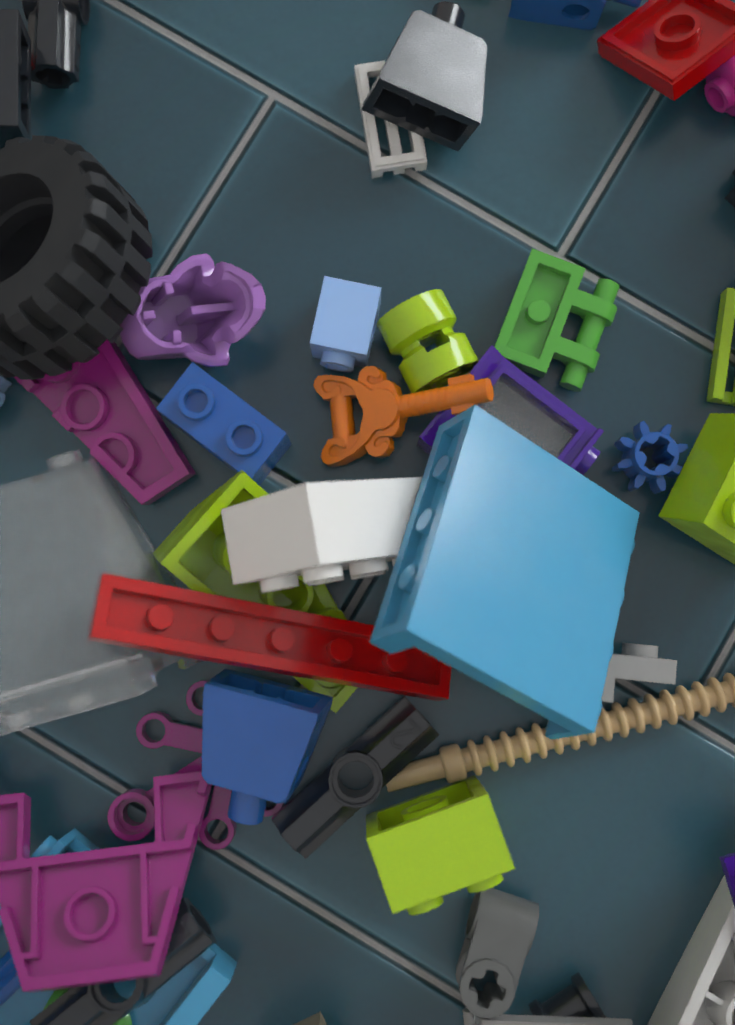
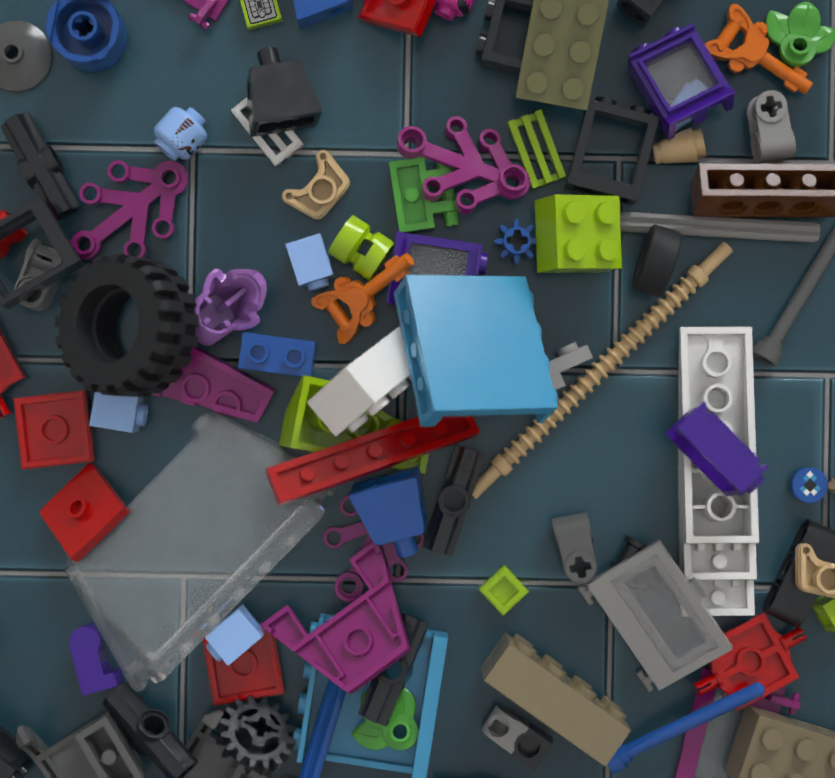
camera: 25 degrees left, 5 degrees up
(151, 117) = (134, 206): none -> magenta plant
(268, 53) = (180, 133): none -> light blue head
(353, 949) = (503, 590): none -> lime tile
(416, 240) = (322, 191): none -> tan piece
(437, 846) = (514, 510): lime brick -> none
(638, 313) = (467, 166): none -> magenta plant

